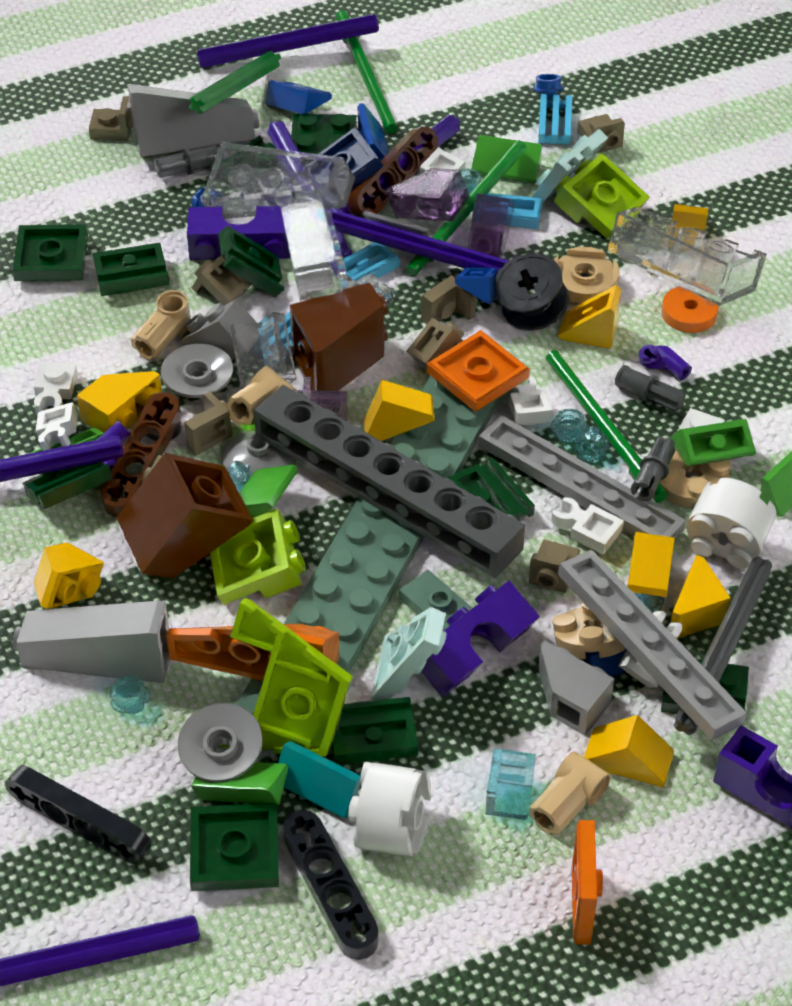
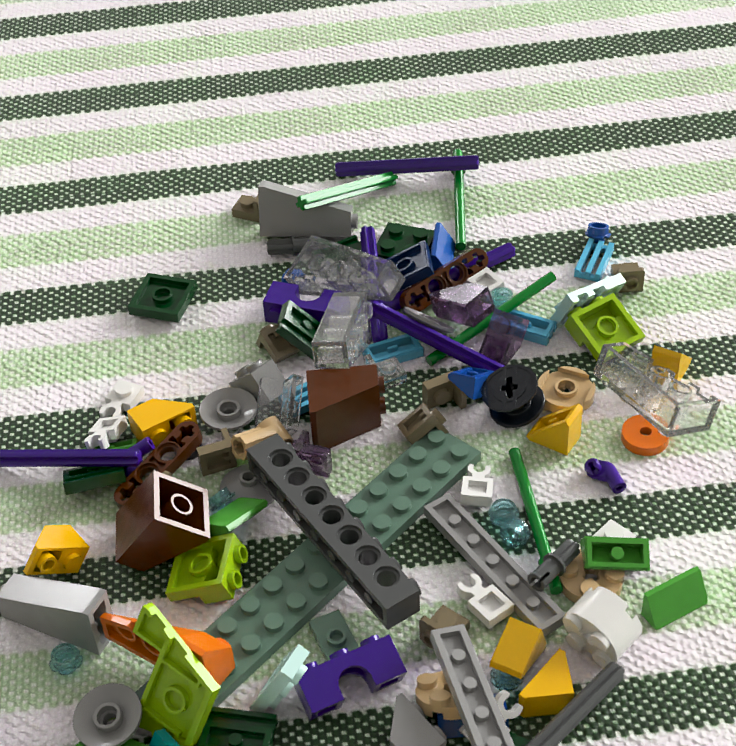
camera: 20 degrees right, 5 degrees down
(130, 269) = (215, 320): dark green plate -> none
(163, 324) = (222, 367): tan piece -> none
(295, 96) = (395, 209): blue slope -> none
(397, 410) = (365, 472): yellow slope -> none
(478, 370) = (441, 452): orange plate -> none
(492, 149) = (551, 294): bright green slope -> none
(495, 487) = (416, 556): dark green plate -> none
(650, 388) = (583, 495): dark grey axle -> none

